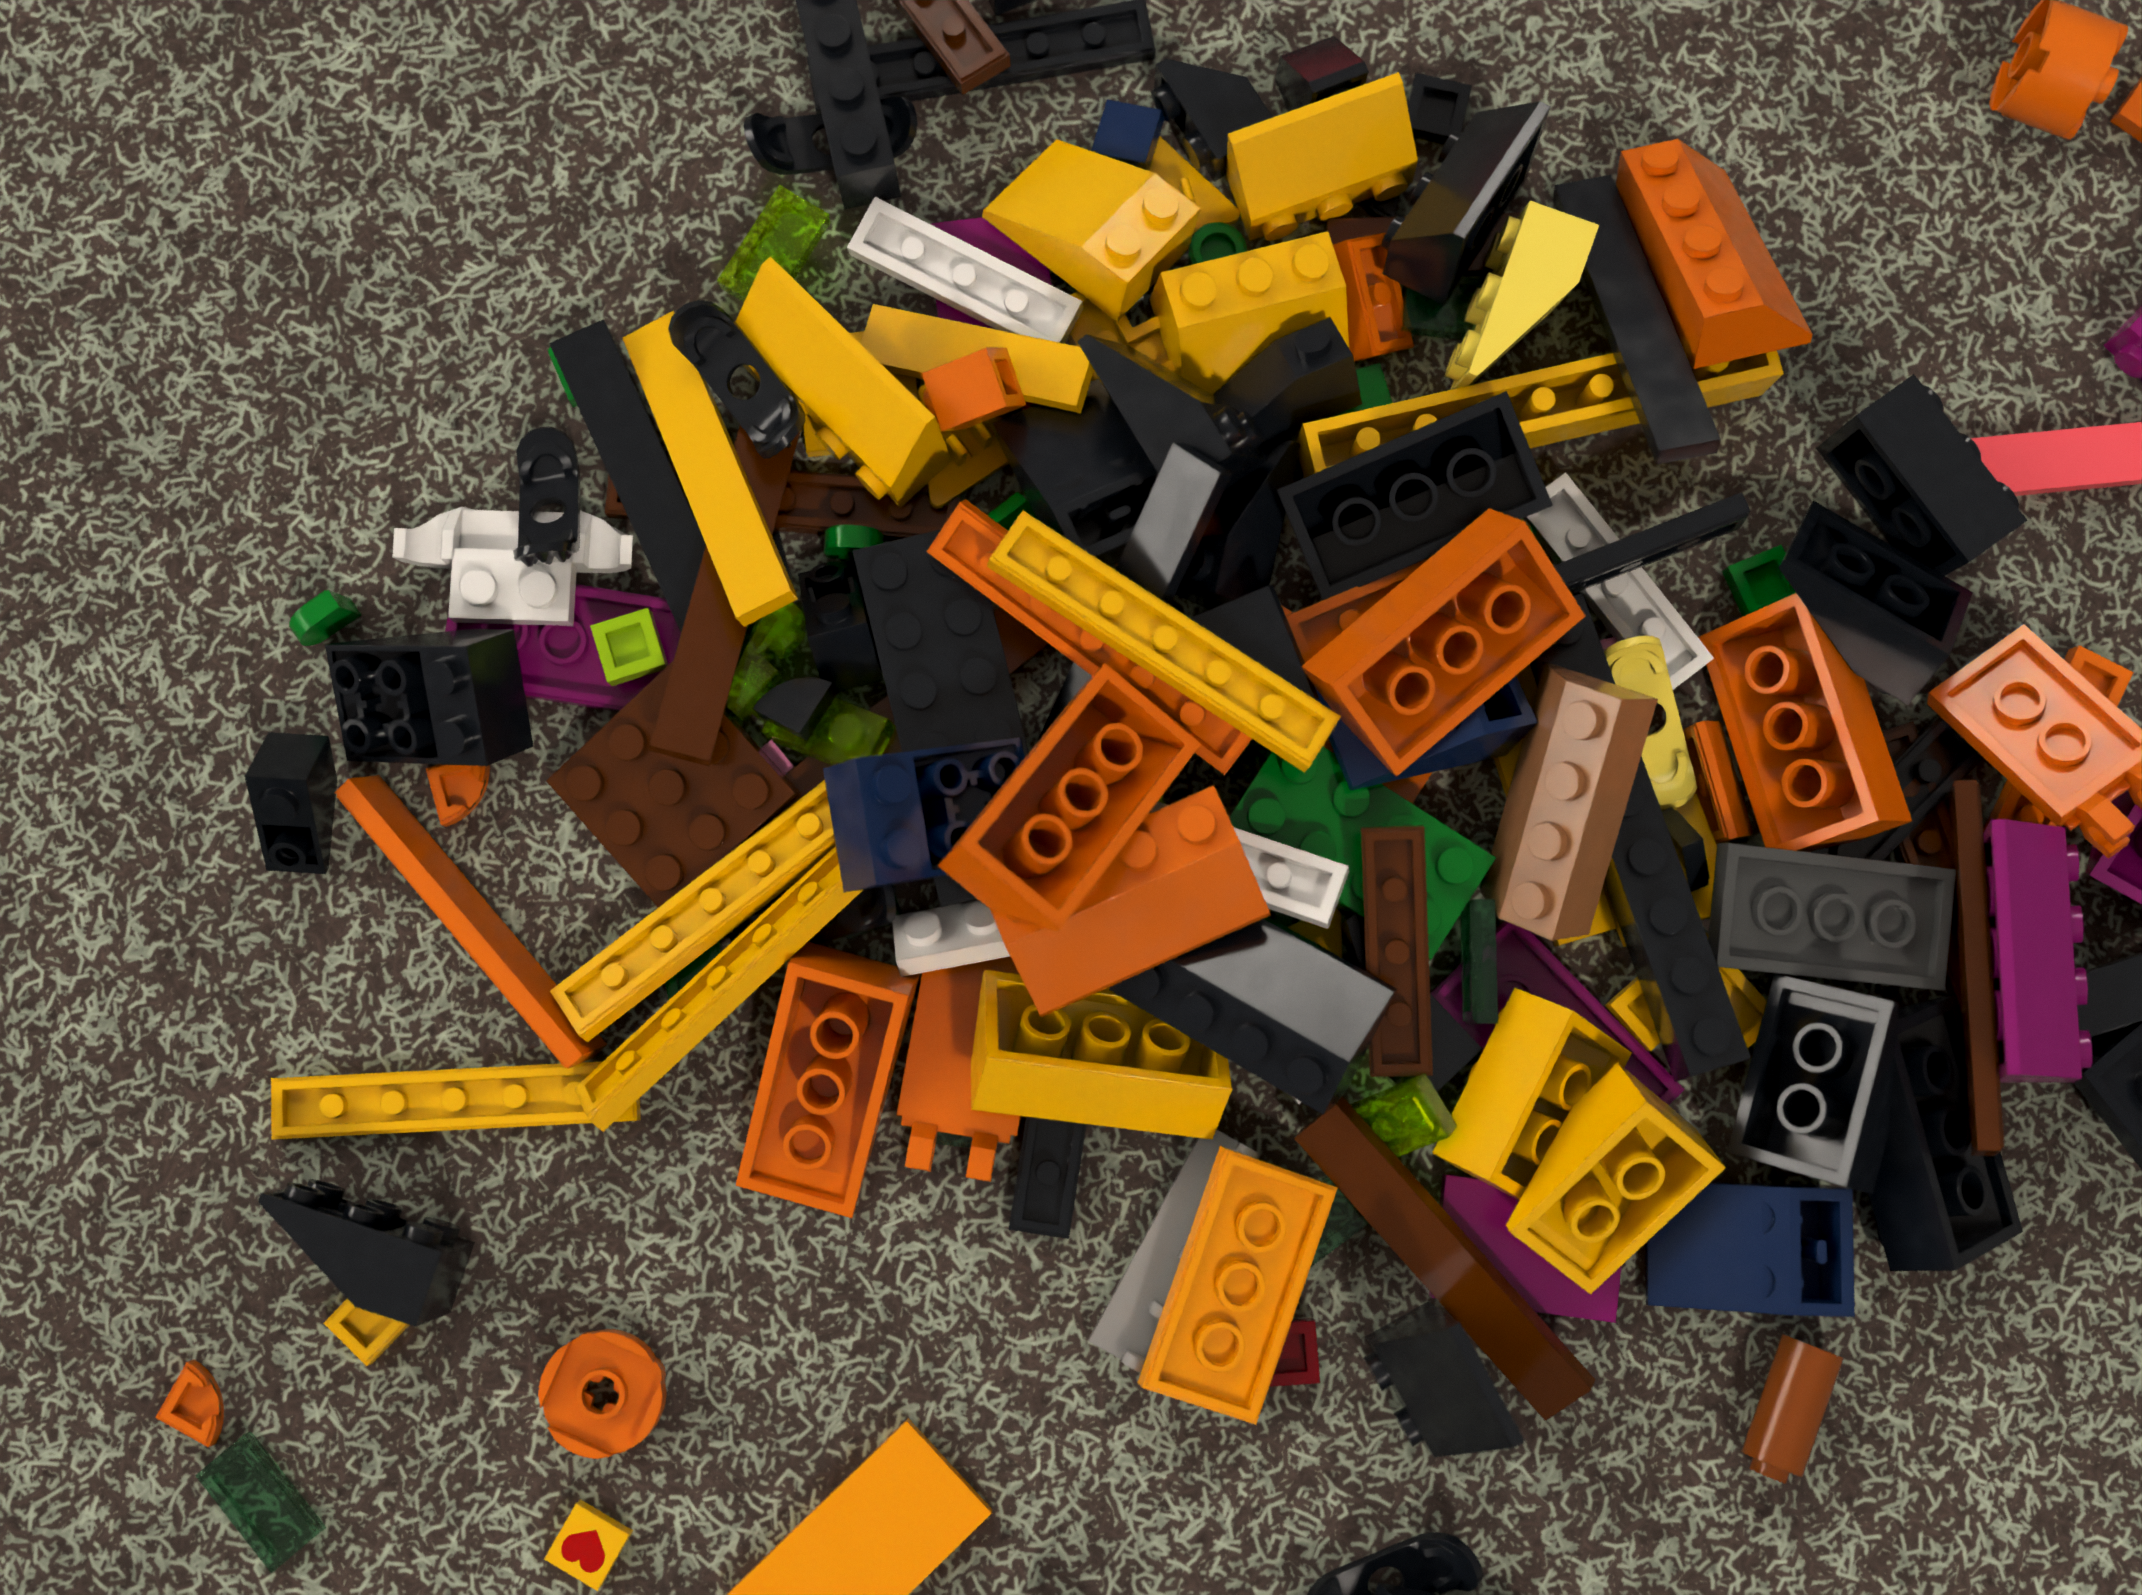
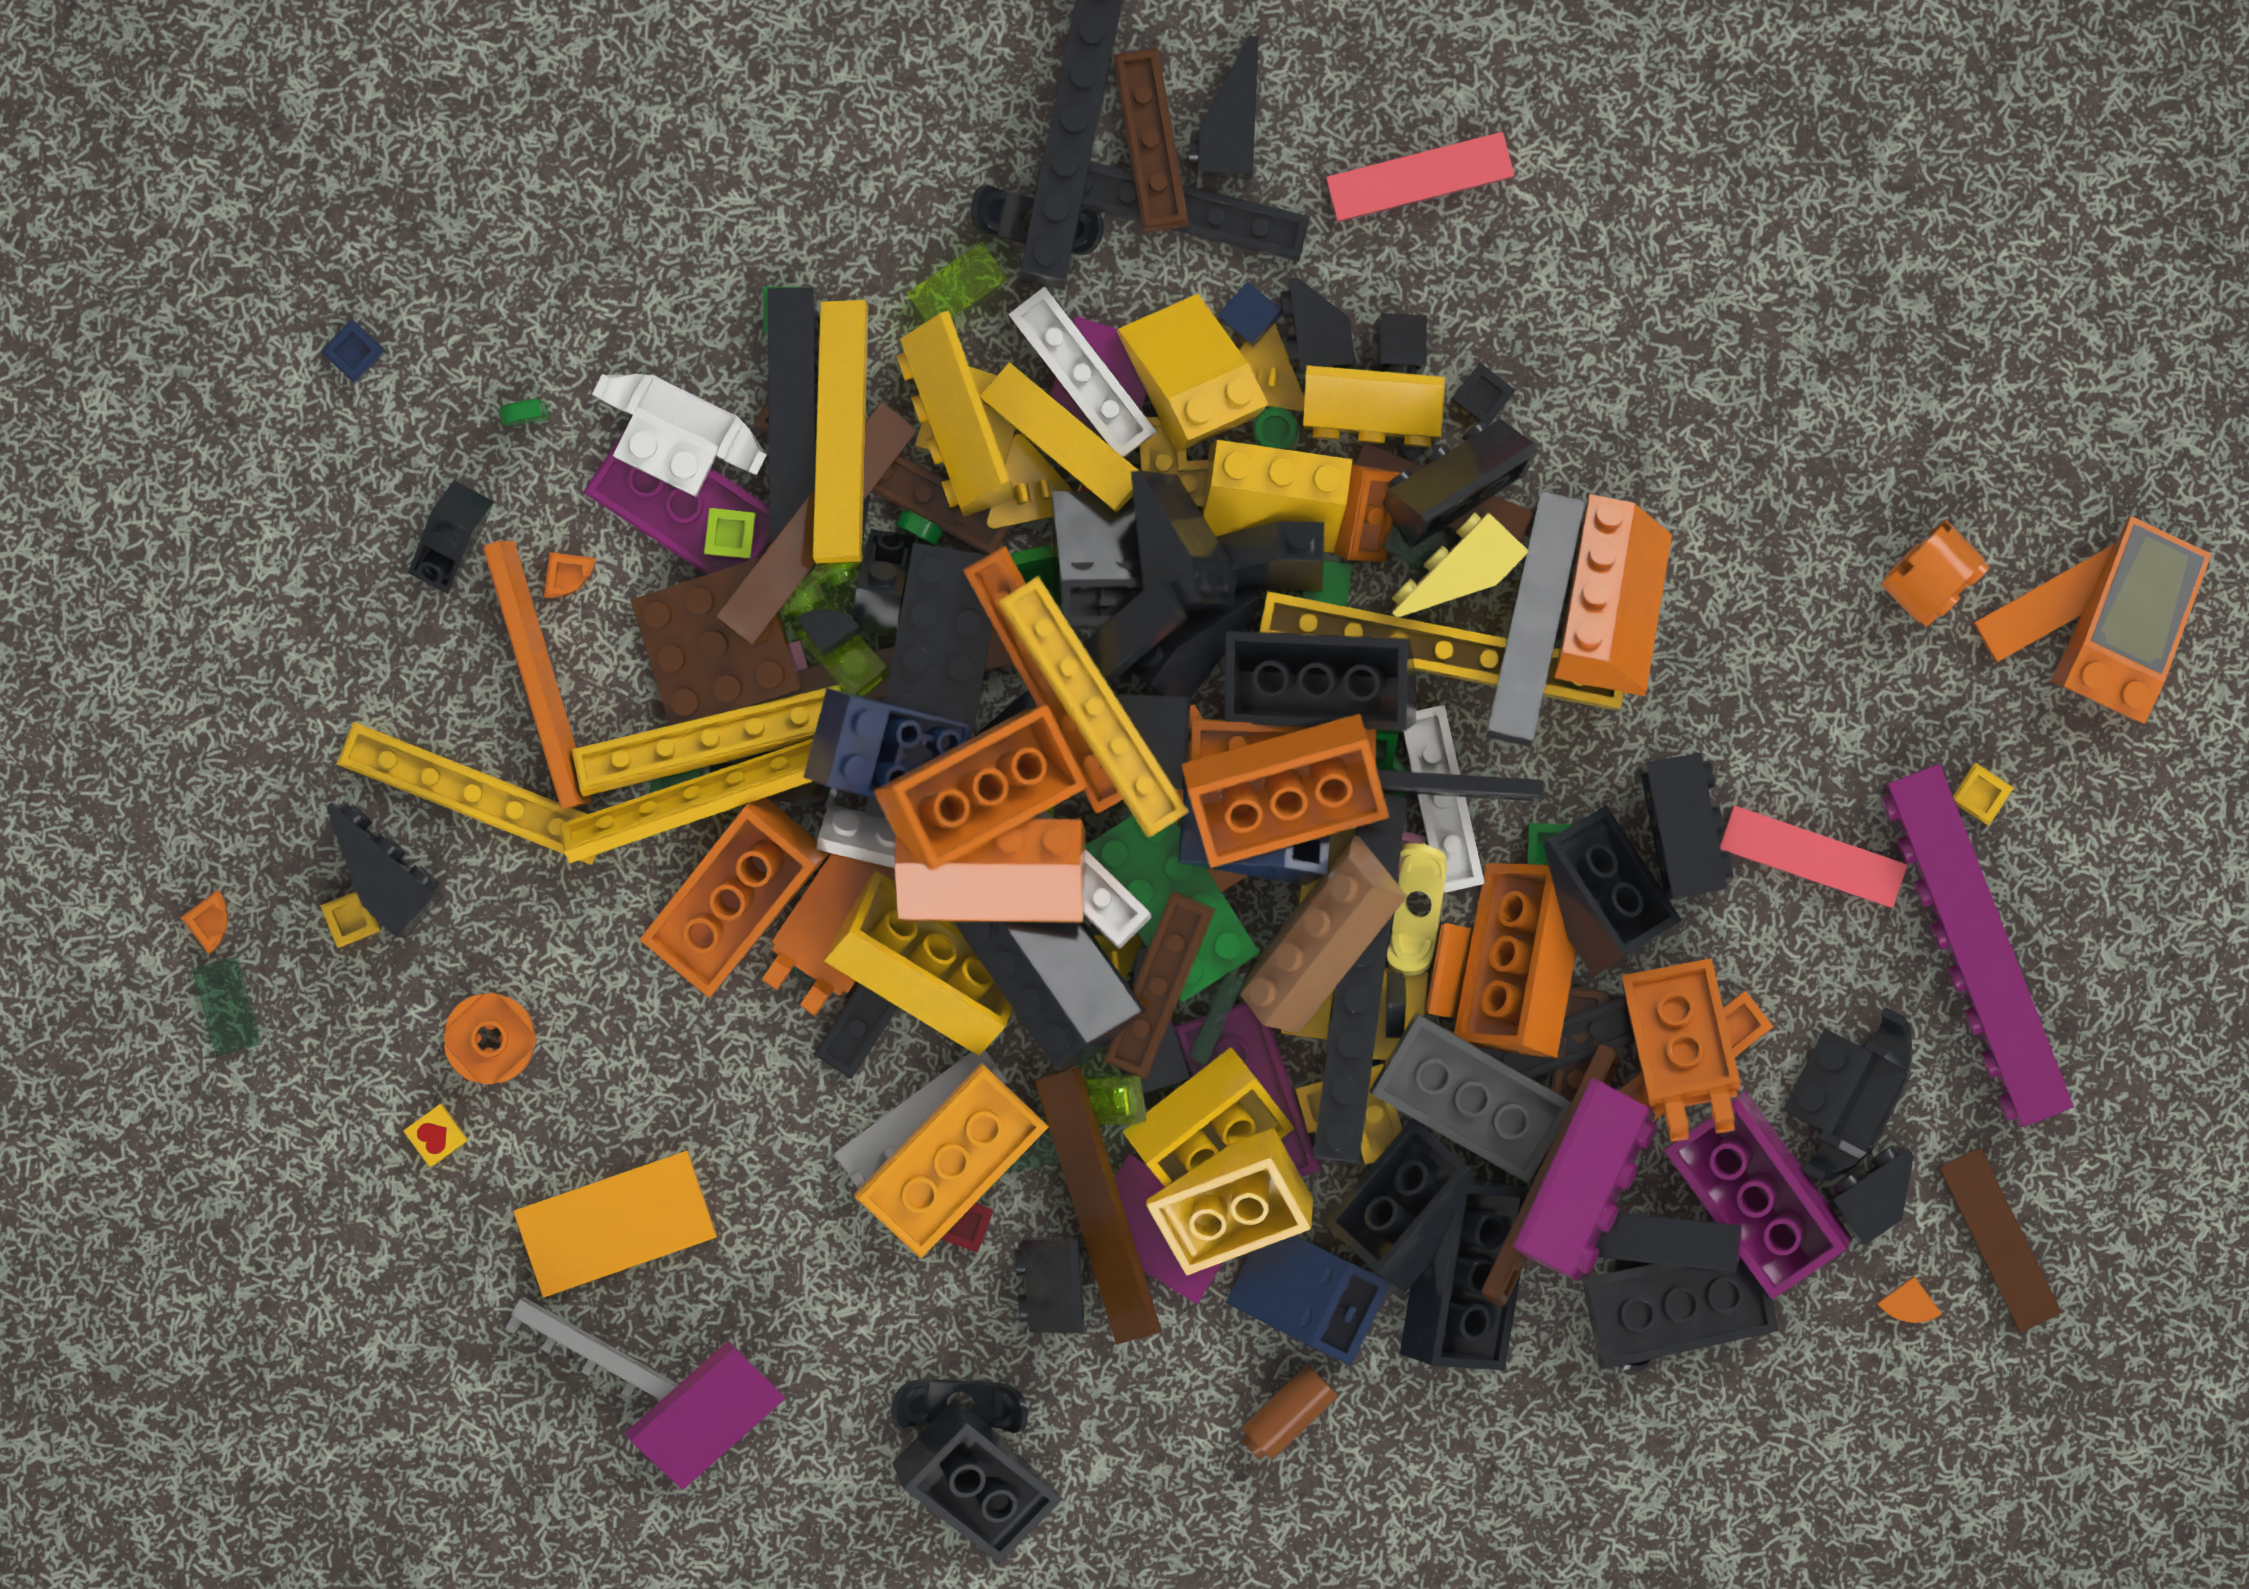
camera: 25 degrees right, 5 degrees up
(91, 638) = (353, 351): none -> dark blue tile
(431, 698) = (576, 507): black slope -> none
(547, 476) = (722, 381): black piece -> none
(716, 350) = (885, 349): black piece -> none
(972, 389) = (1047, 466): orange brick -> none

